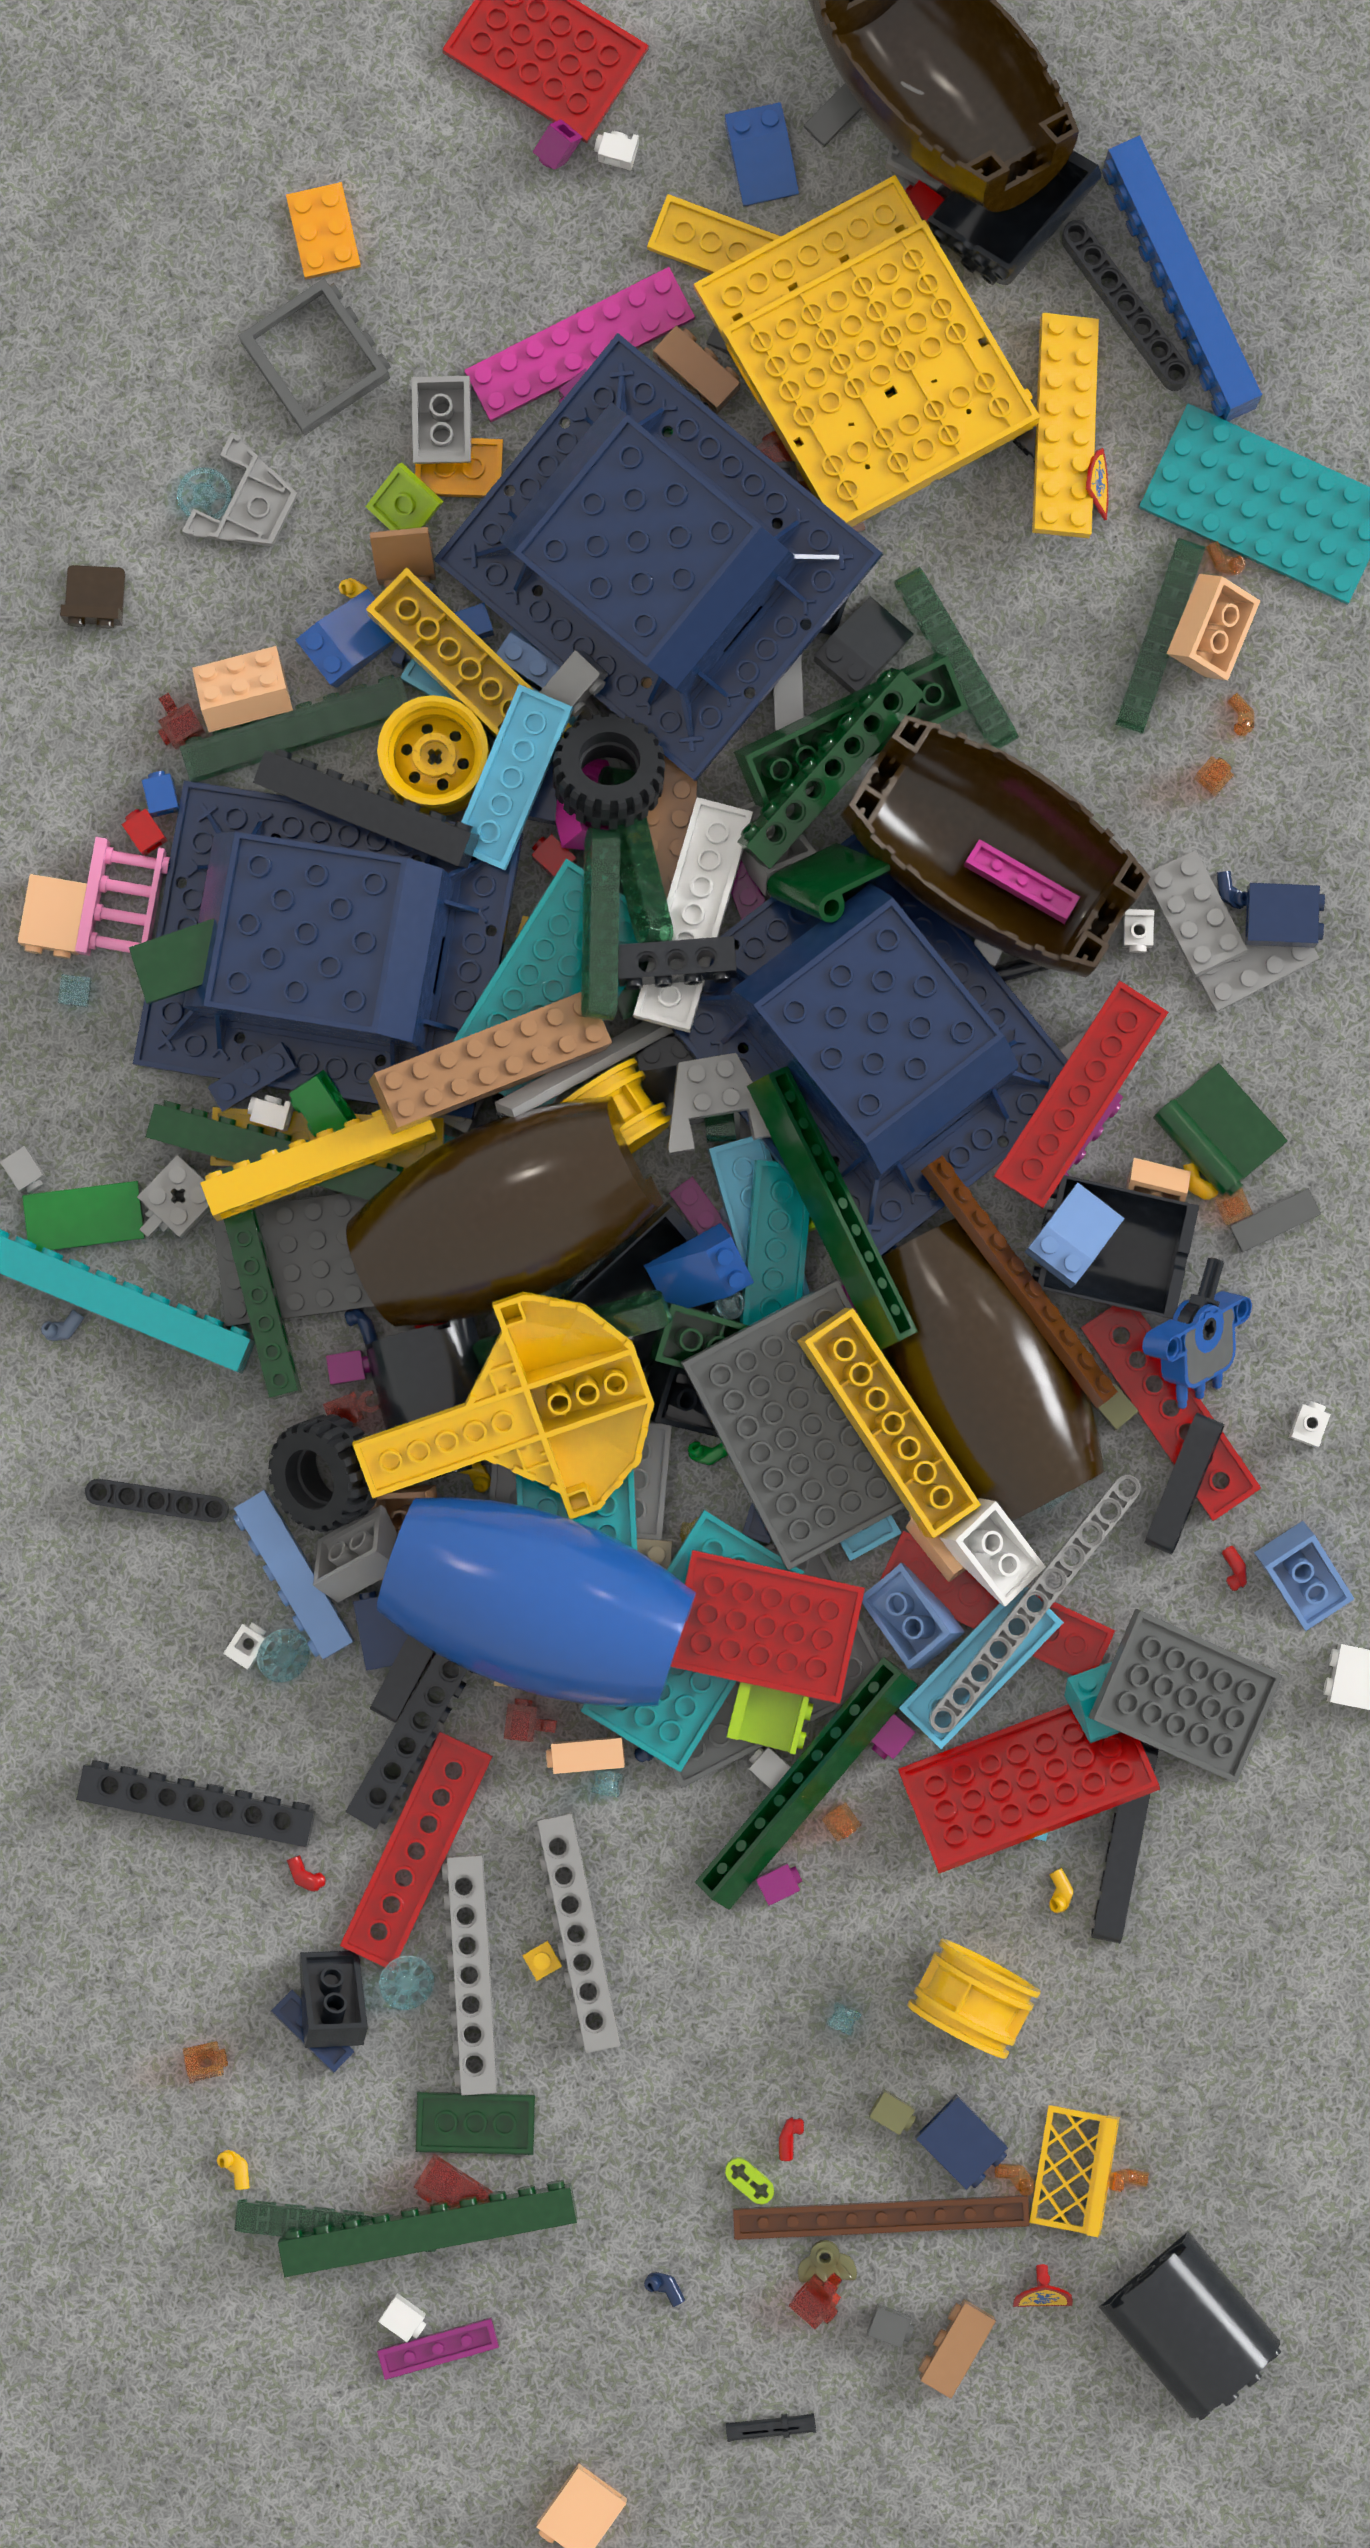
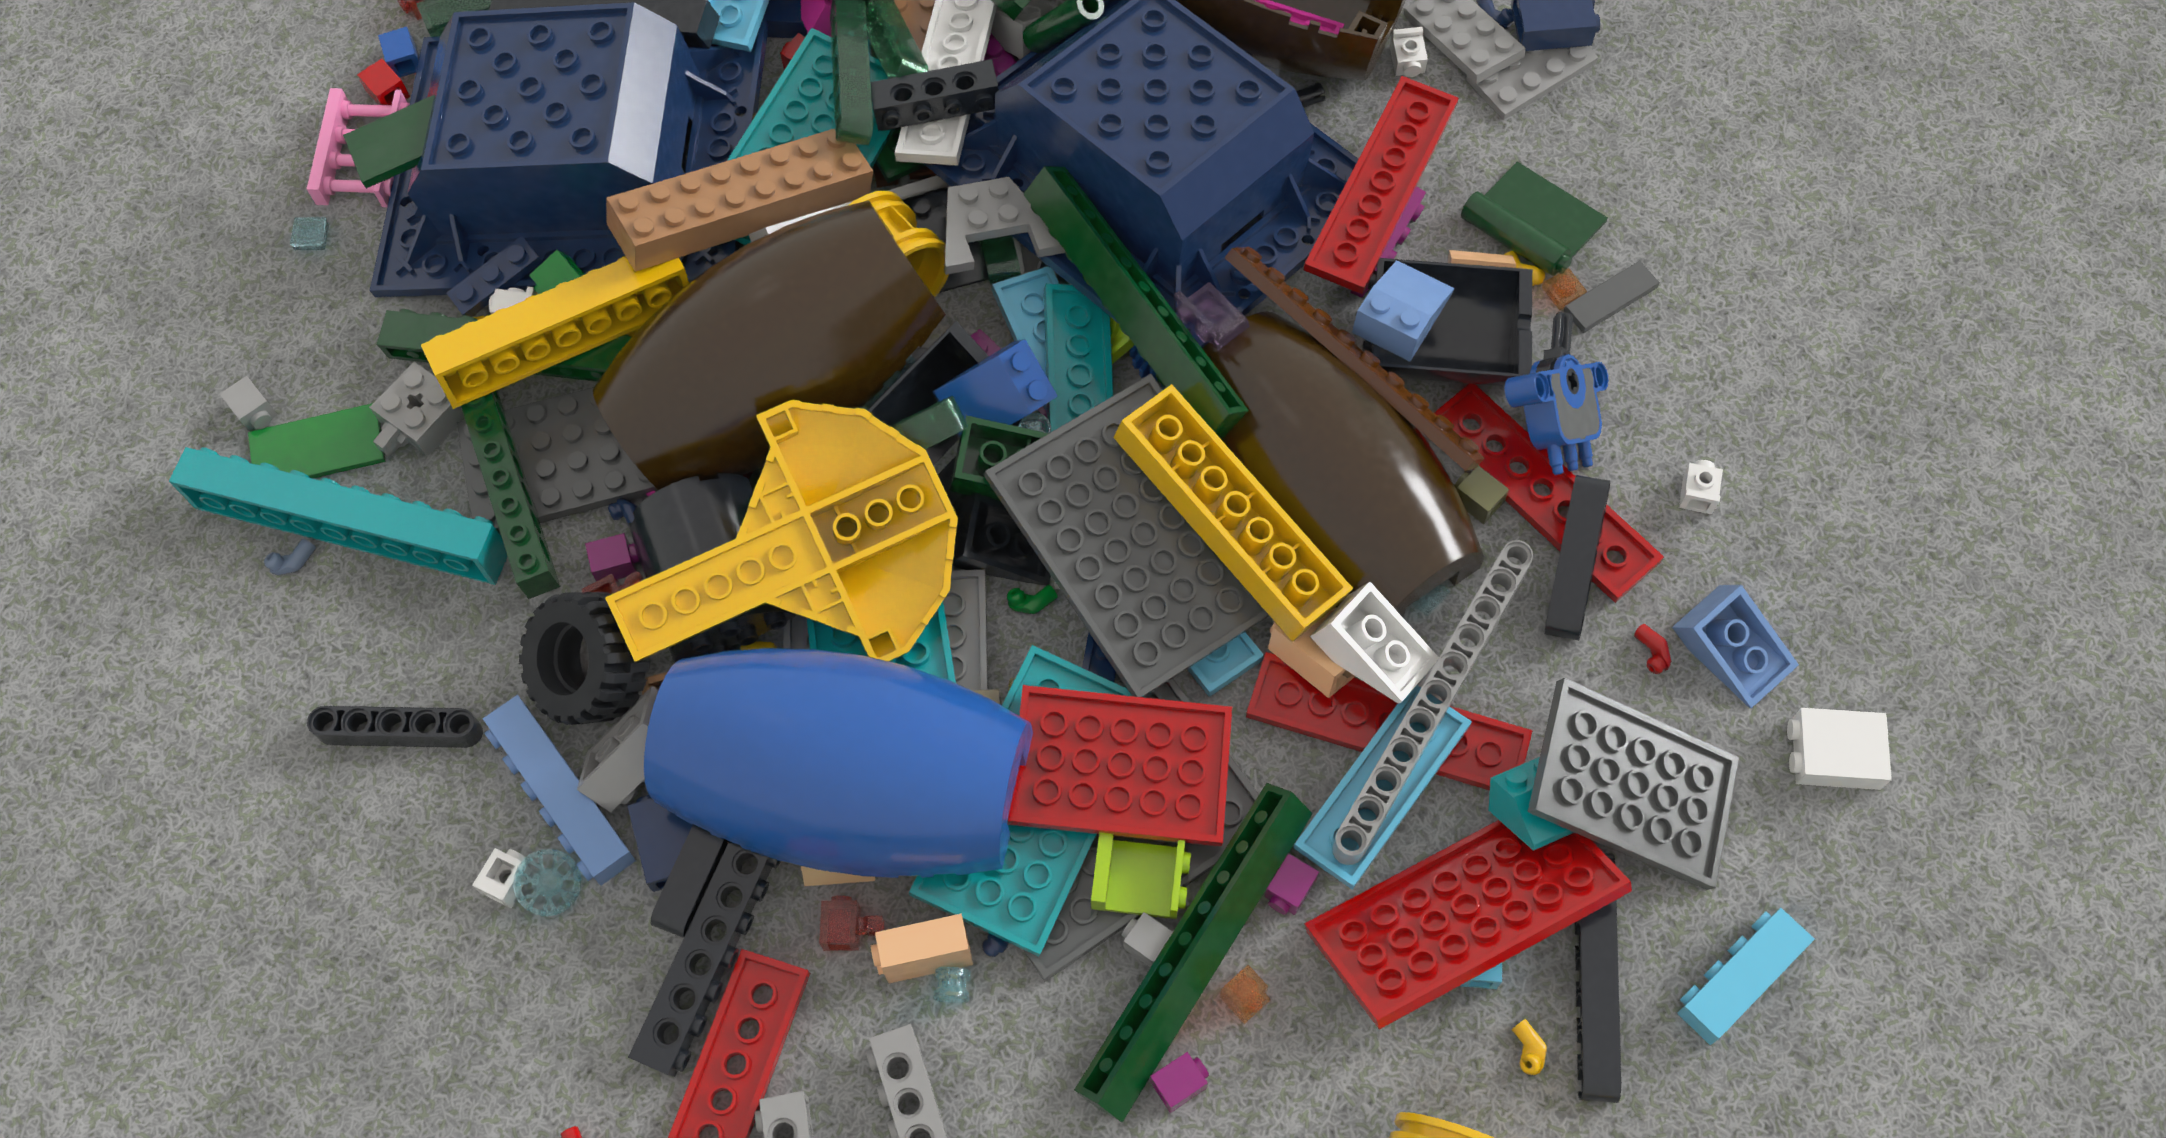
camera: 10 degrees left, 20 degrees down
(52, 915) = (283, 167): light nougat brick -> none
(92, 1790) = (315, 1060): black brick -> none
(900, 1230) = (1211, 315): none -> clear purple bracket
(911, 1617) = (1291, 742): medium blue slope -> none
(1243, 1857) = (1745, 975): none -> medium azure brick

